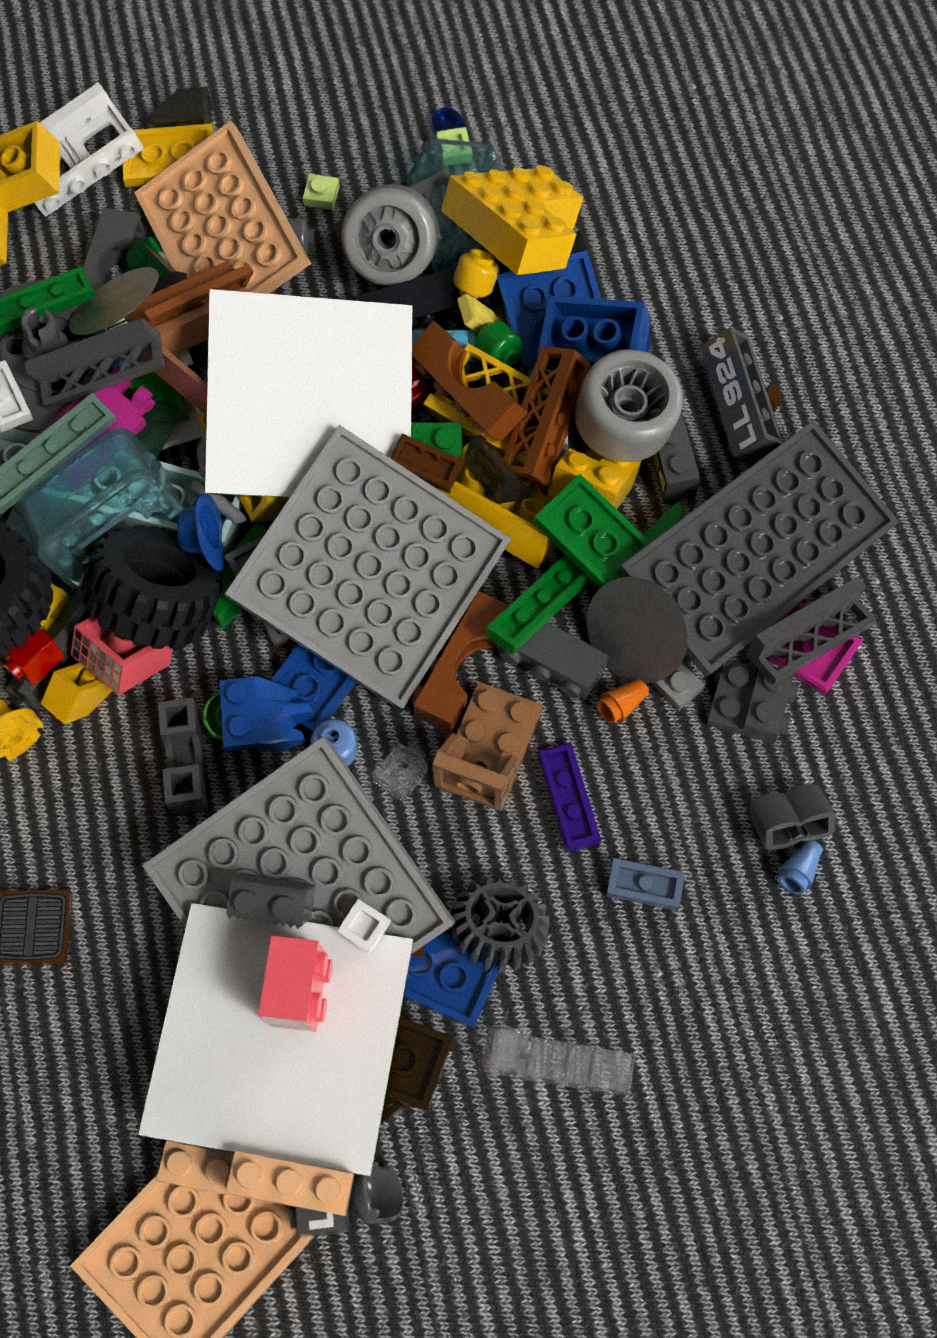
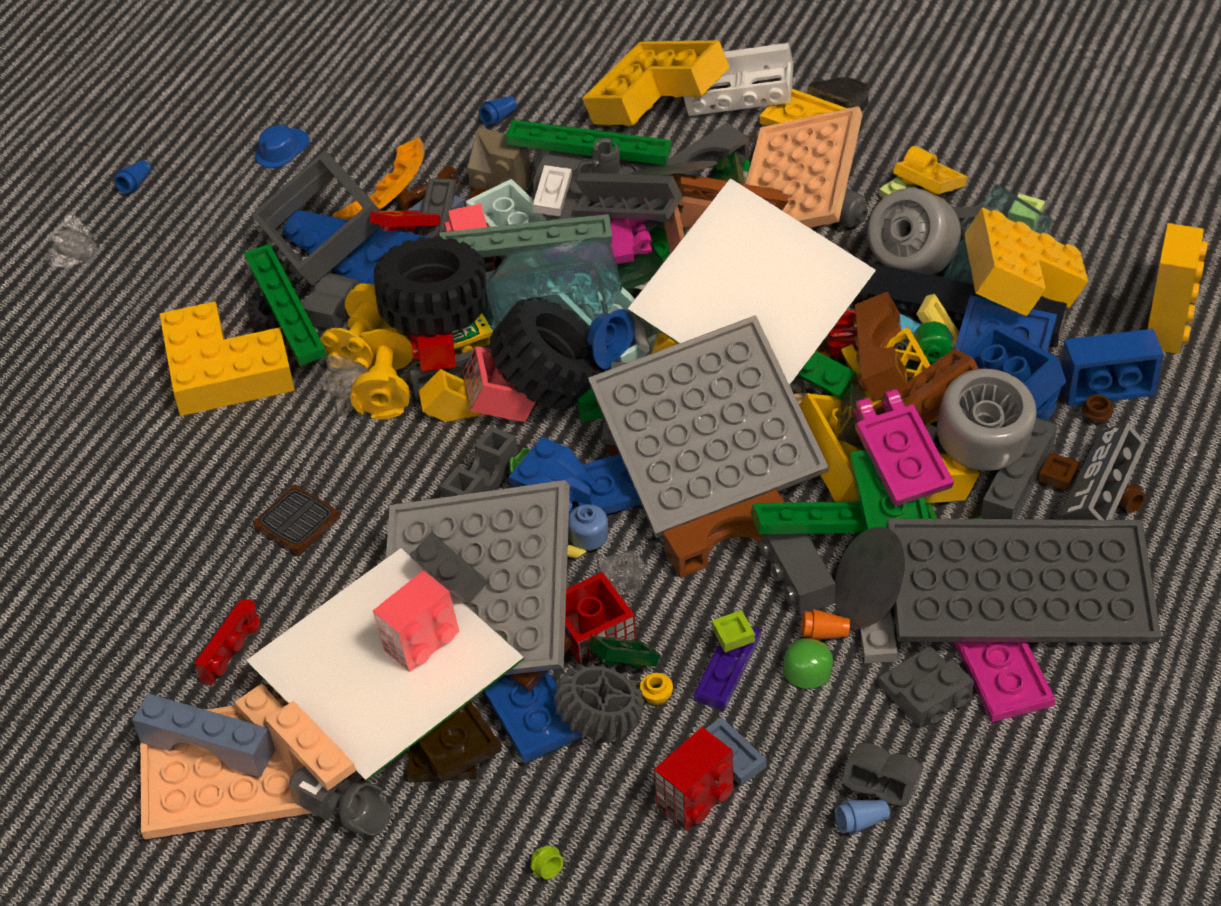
camera: 40 degrees right, 20 degrees down
(83, 1111) = (227, 641): none -> red plate
(158, 1241) = (236, 742): none -> sand blue arch
(340, 156) = (923, 169): none -> yellow plate
(364, 926) = (496, 623): white plate -> none
(428, 462) = (805, 381): reddish brown plate -> none
(428, 834) = (595, 610): none -> red brick
(447, 119) = (1038, 191): clear blue tile -> none
(476, 273) = (953, 286): yellow head -> none
(478, 855) = (624, 651): none -> dark green plate
(488, 747) = (690, 601): medium nougat bracket -> none
(528, 877) = (656, 695): none -> yellow plate
(556, 764) = (733, 631): none -> lime plate
(557, 1062) = (556, 814): clear beam -> none
(576, 484) = (901, 450): none -> dark pink tile
(578, 1115) = (546, 862): none -> lime plate
(637, 747) = (807, 663): none -> bright green hair
(650, 940) = (694, 779): none -> red brick
(661, 154) = (1177, 285): none -> yellow brick
(667, 269) = (1111, 365): none -> blue brick
(677, 316) = (1097, 408): none -> reddish brown plate
(696, 408) = (1058, 471): none -> reddish brown plate
(808, 620) = (1010, 653): dark grey fence -> none

